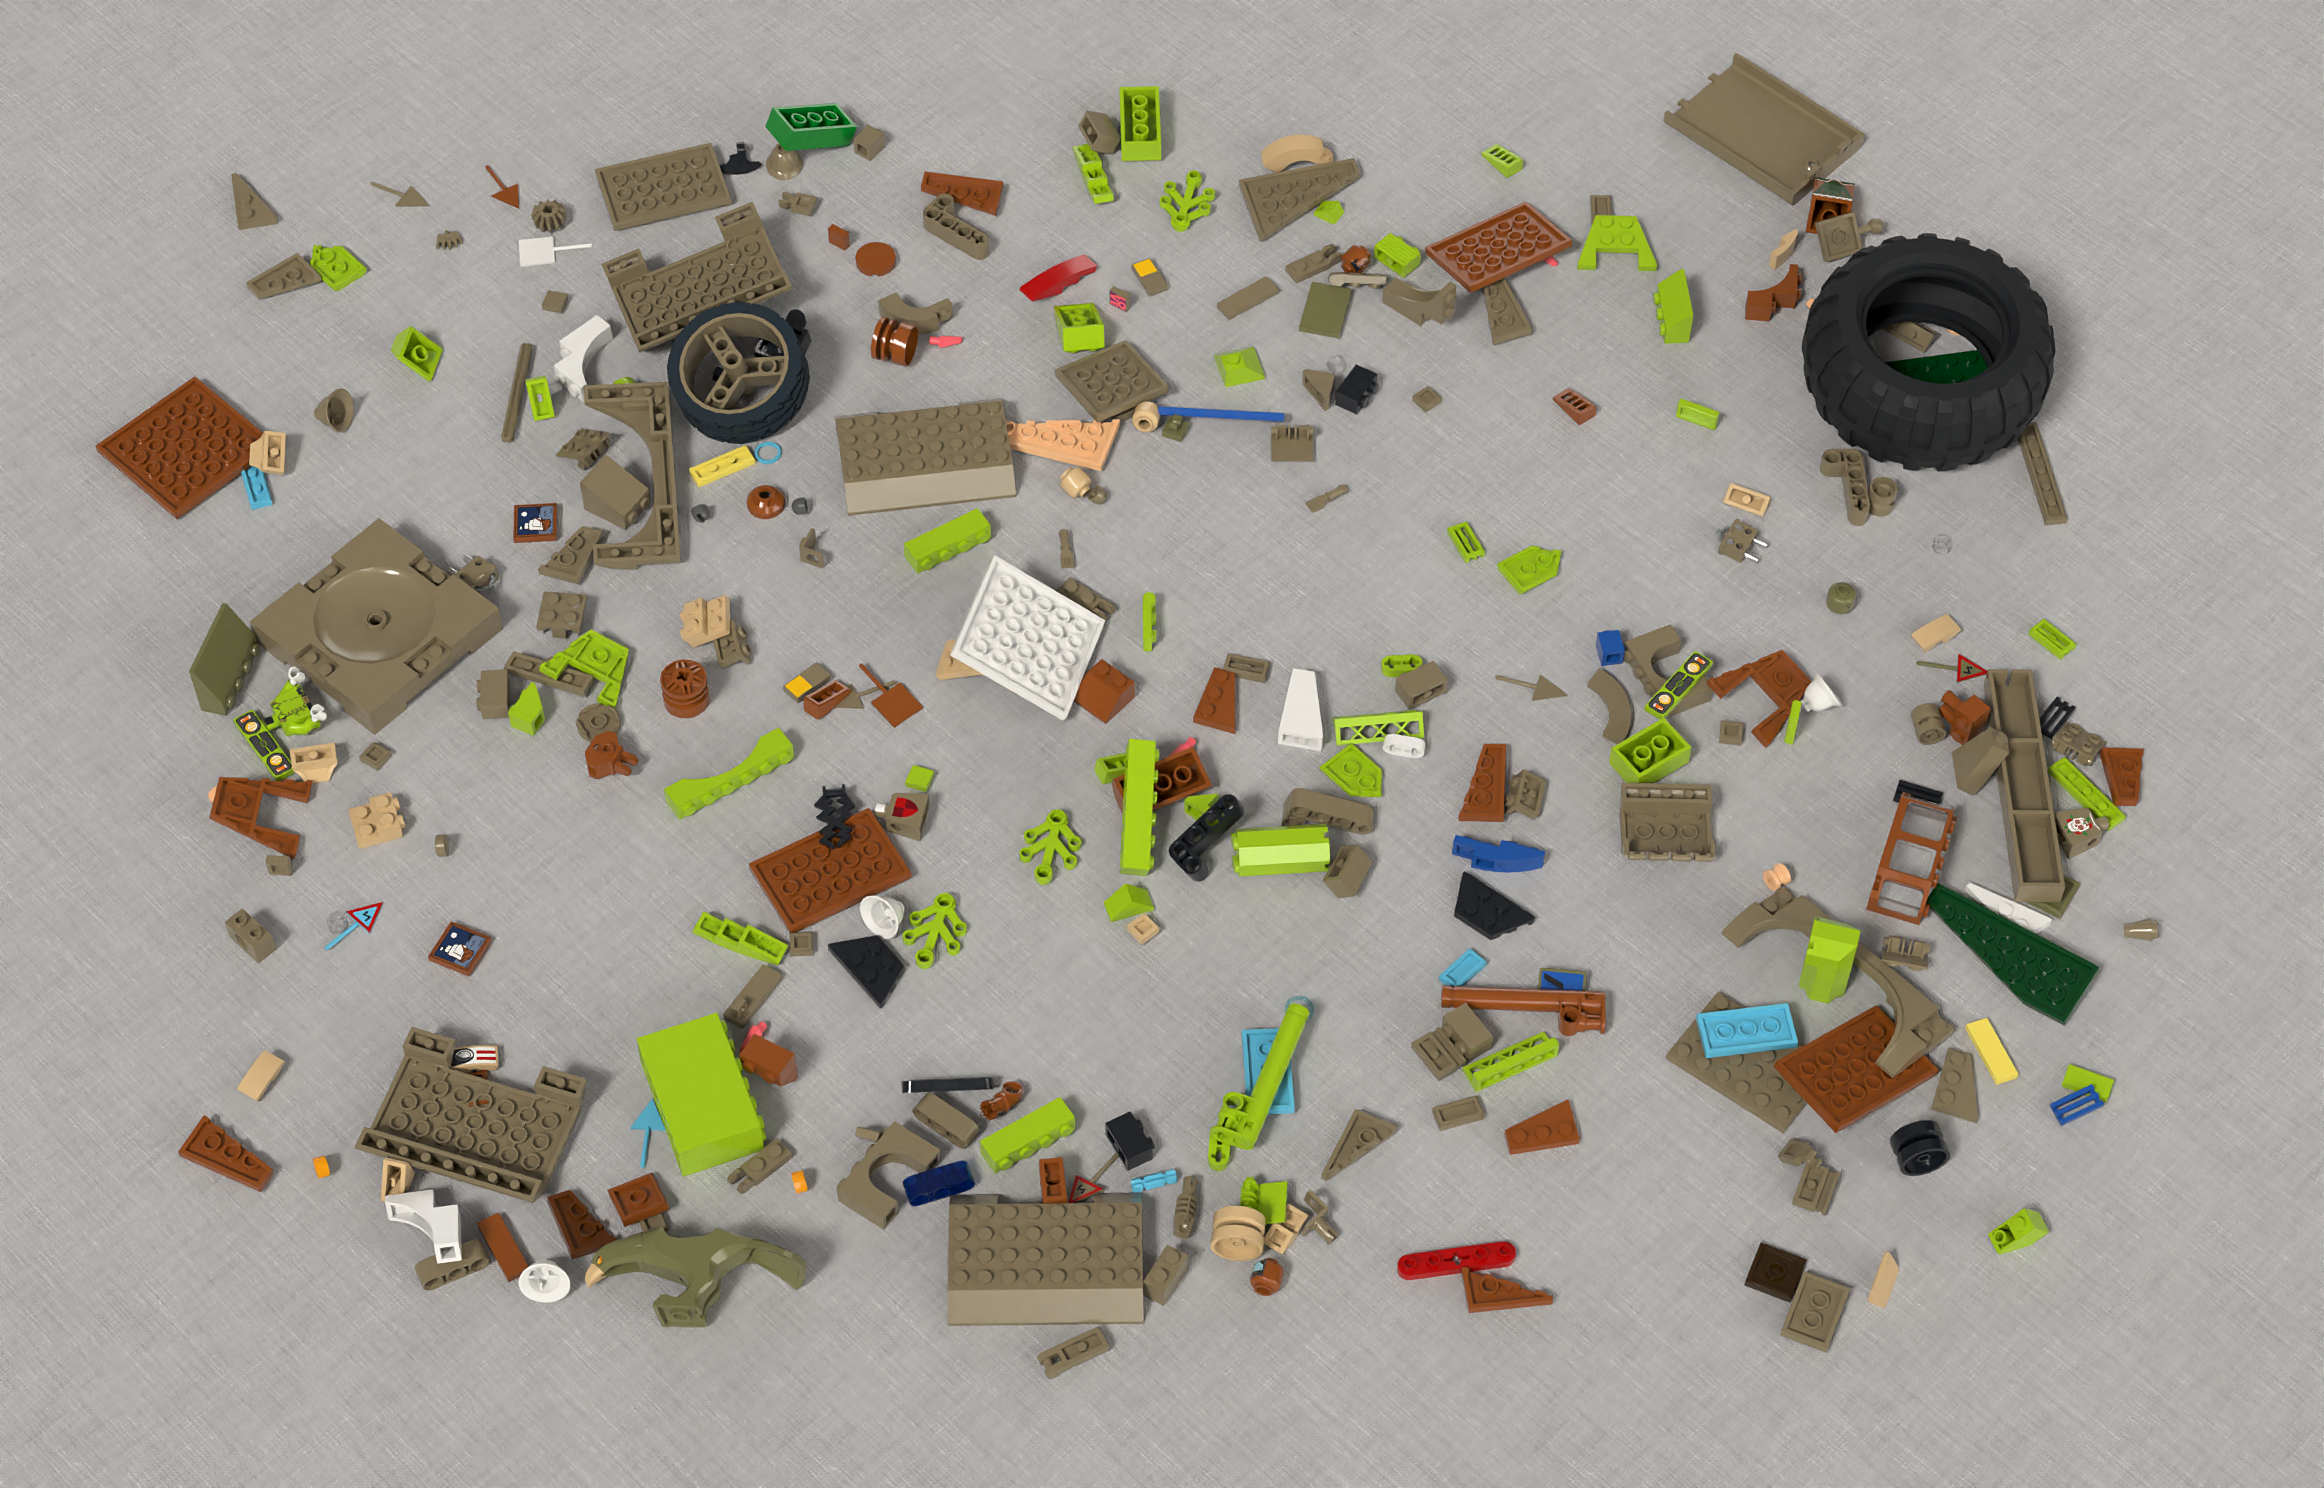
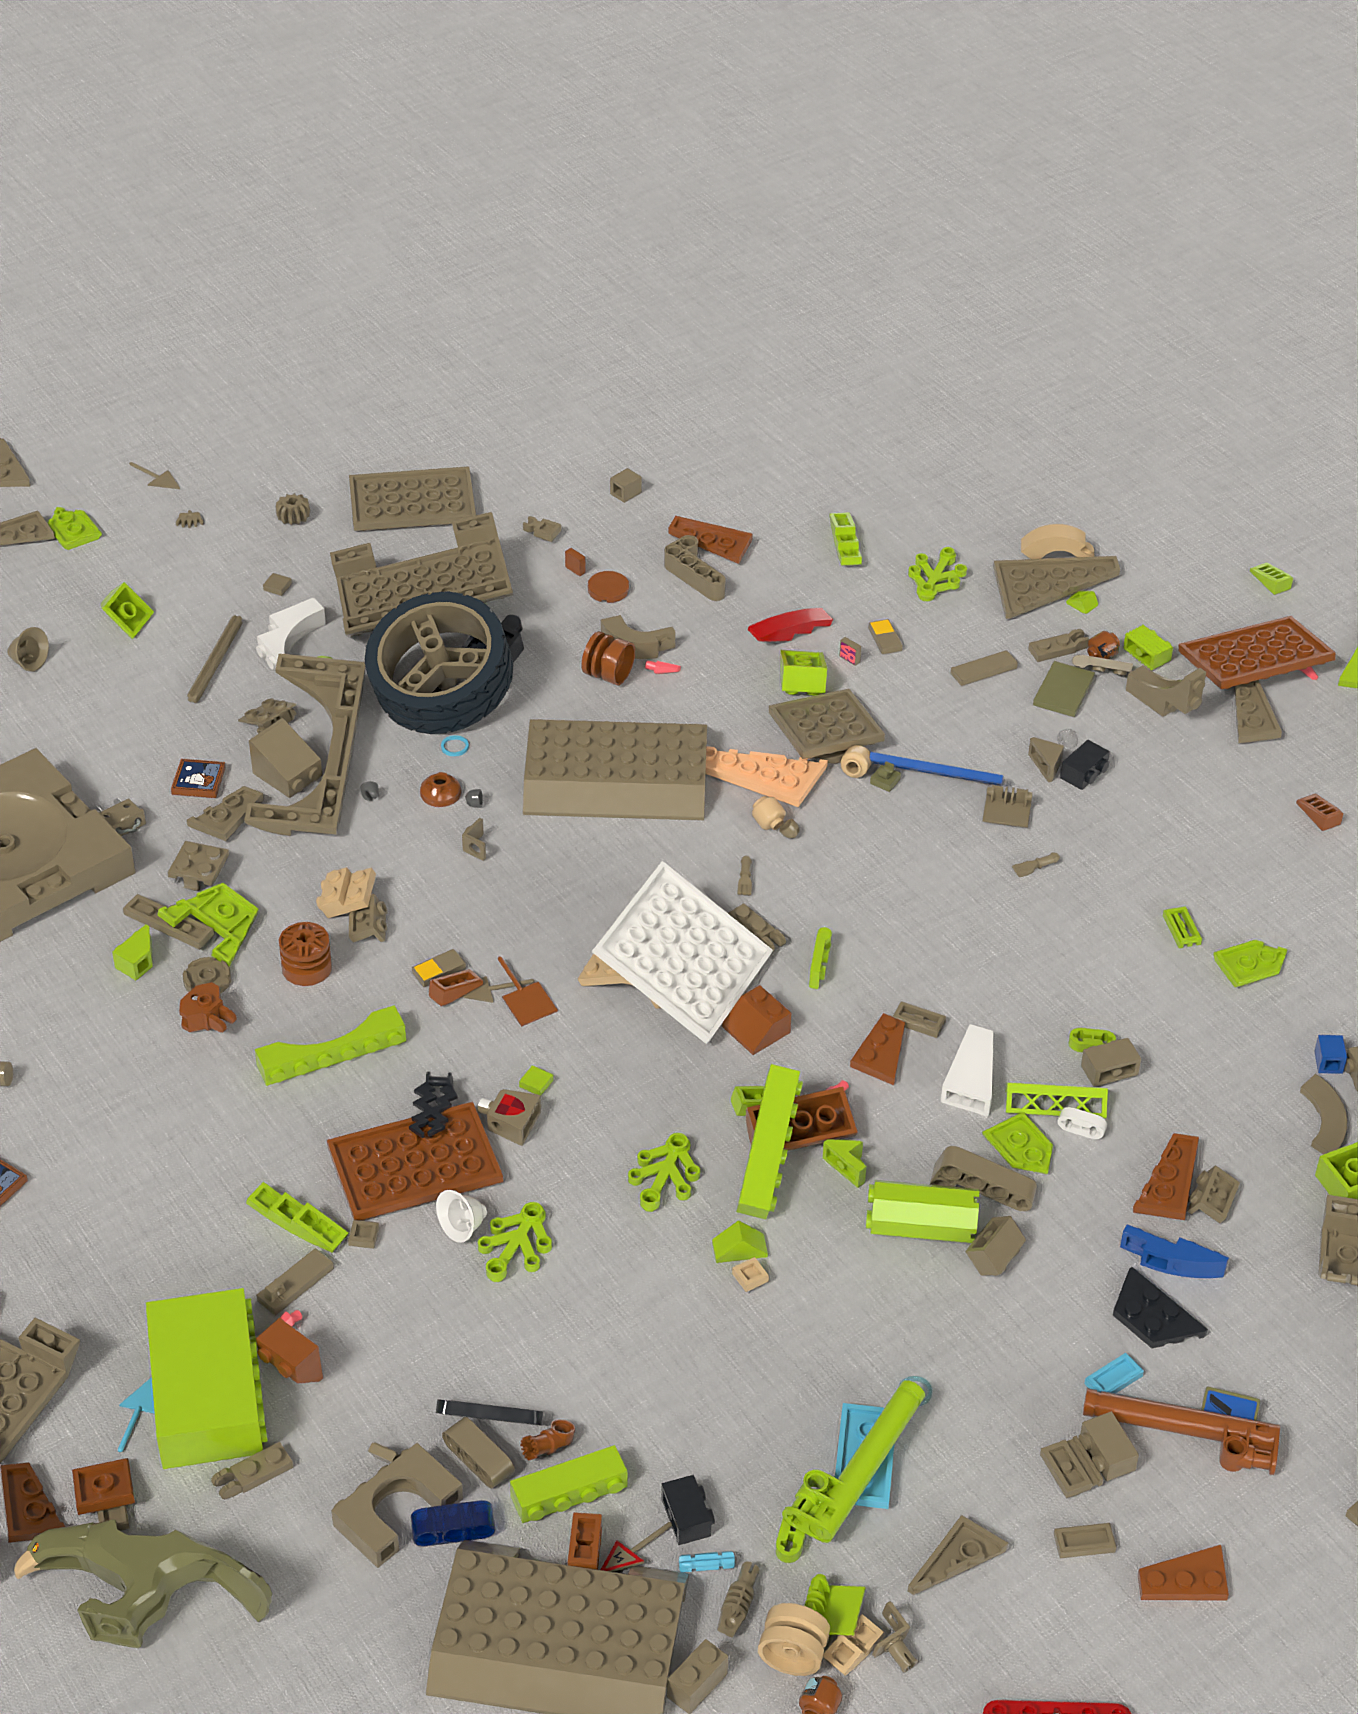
camera: 10 degrees right, 10 degrees down
(494, 694) = (104, 931): dark tan brick -> none
(507, 195) = (258, 489): dark orange piece -> none
(540, 397) = (236, 661): lime piece -> none
(541, 250) = (278, 539): white piece -> none
(722, 466) = (404, 751): light yellow tile -> none
(738, 163) = (492, 488): black piece -> none
(783, 164) = (537, 491): dark tan hat -> none
(799, 1181) = (292, 1495): light orange axle -> none
(810, 126) = (569, 461): green brick -> none
(870, 965) = (434, 1268): black wing -> none
(947, 540) = (620, 850): lime brick -> none
(1099, 132) = (858, 502): dark tan brick -> none
(1140, 123) = (901, 500): lime brick -> none
(1209, 835) = (867, 1160): black beam -> none
(1239, 366) = (963, 729): lime slope -> none
(1426, 399) = (1159, 784): dark tan tile -> none
(1513, 1064) = (1160, 1493): lime fence -> none
(1543, 689) = (1248, 1087): dark tan piece -> none

